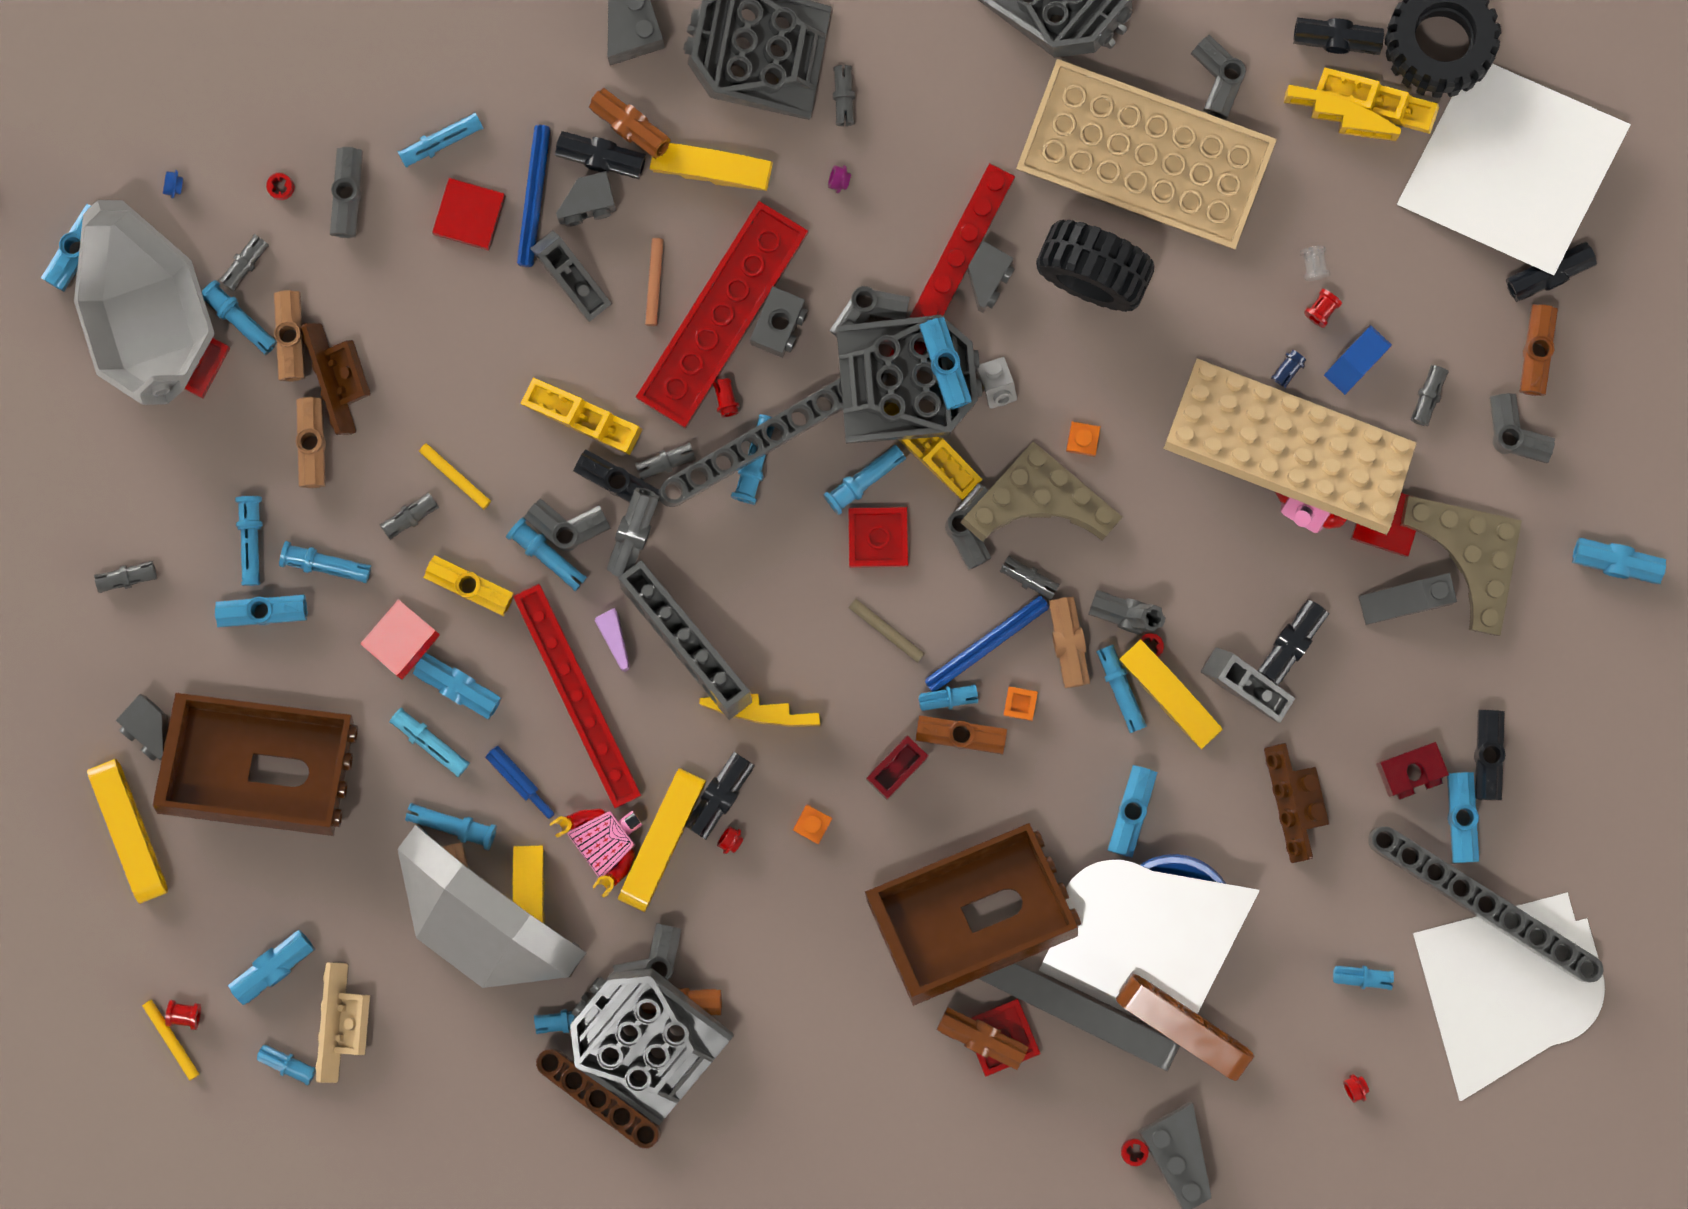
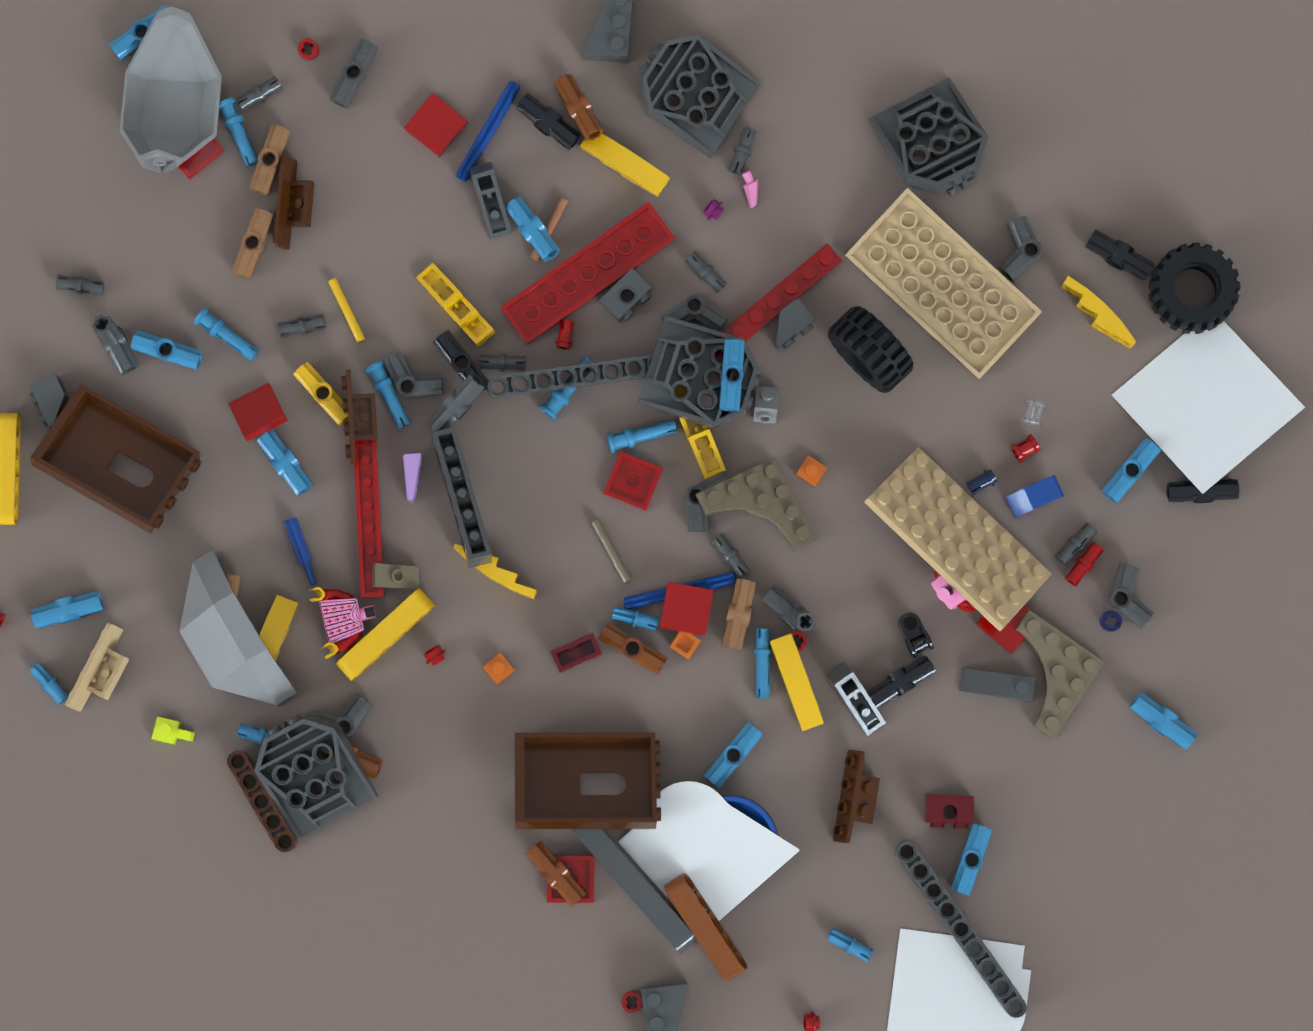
camera: 15 degrees right, 0 degrees up
(172, 183) = (231, 15): blue plate -> none
(196, 629) = (115, 344): none -> dark grey piece
(249, 524) = (183, 286): dark azure pin -> none
(429, 145) = (437, 63): dark azure pin -> none
(429, 742) = (248, 495): medium azure pin -> none
(452, 1061) = (169, 730): none -> neon yellow plate
(465, 829) = (247, 567): dark azure pin -> none
(525, 593) = (361, 417): none -> reddish brown bracket
(587, 198) = (525, 149): dark grey slope -> none
(635, 289) = (532, 229): none -> dark azure piece
(645, 766) = (395, 576): none -> dark tan plate
(720, 795) = (440, 620): black piece -> none
(860, 256) = (706, 272): none -> dark grey pin
(872, 136) = (750, 188): none -> bright pink bar
(1005, 661) = (686, 609): none -> red tile
(1286, 581) = (915, 635): none -> black piece
(1387, 102) = (1134, 317): yellow slope -> none
(1449, 415) = (1084, 564): none -> red pin
(1451, 299) = (1121, 481): none -> dark azure piece
(1489, 775) = (1015, 807): black piece -> none
(1508, 478) = (1114, 615): none -> clear blue bush
(1541, 332) = (1177, 532): dark orange piece -> none

